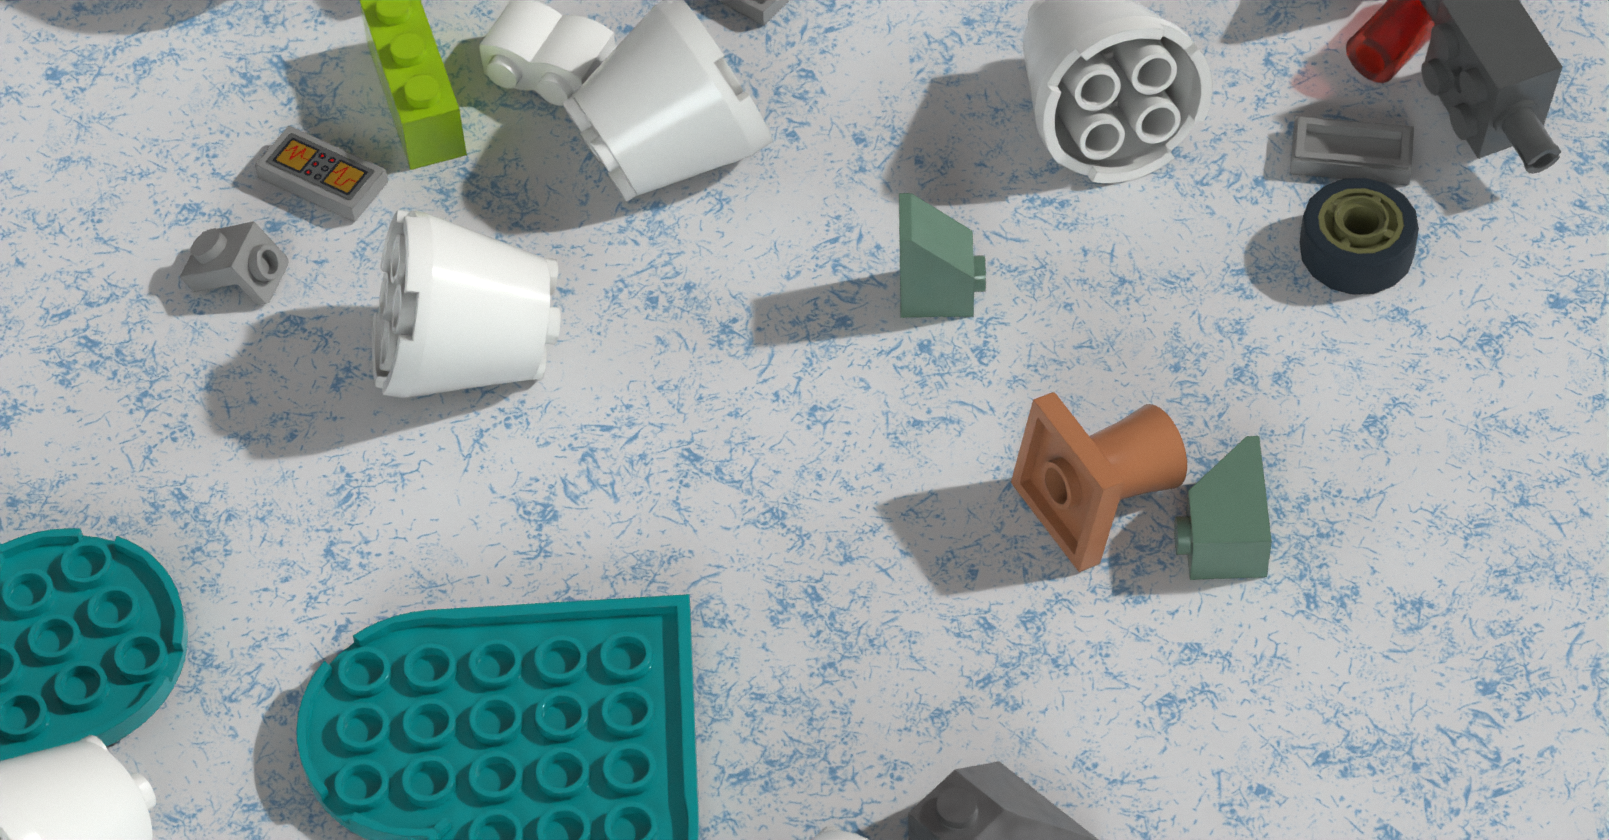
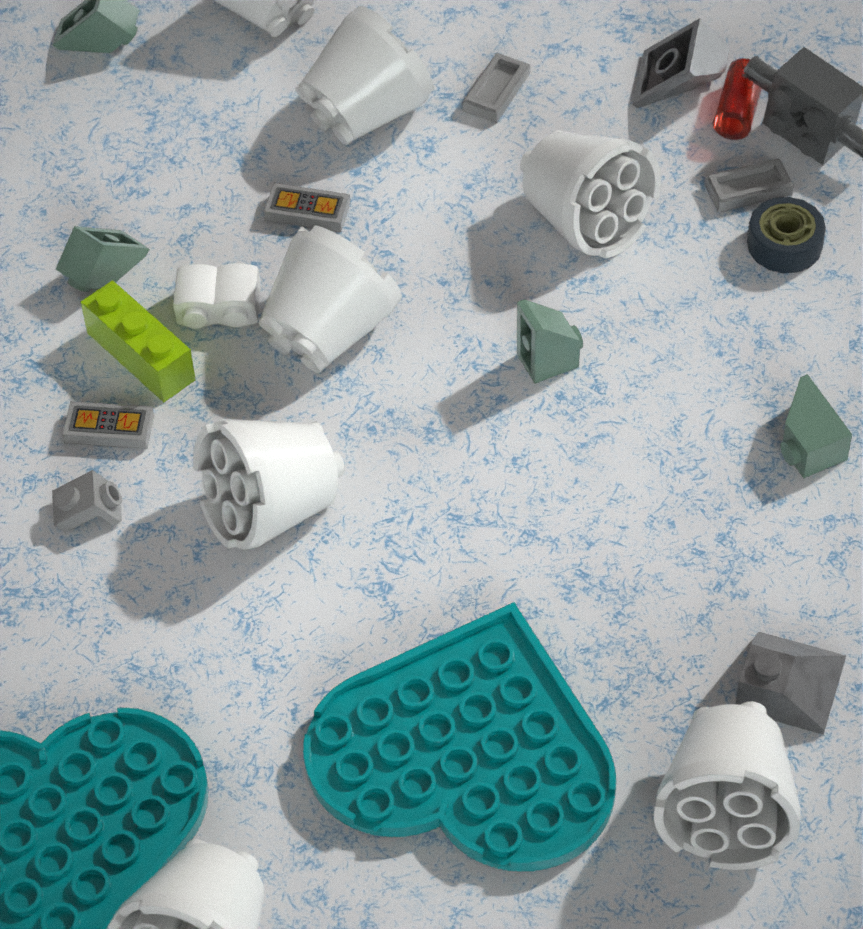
camera: 25 degrees left, 0 degrees up
(1079, 478) = (721, 437): nougat plant -> none

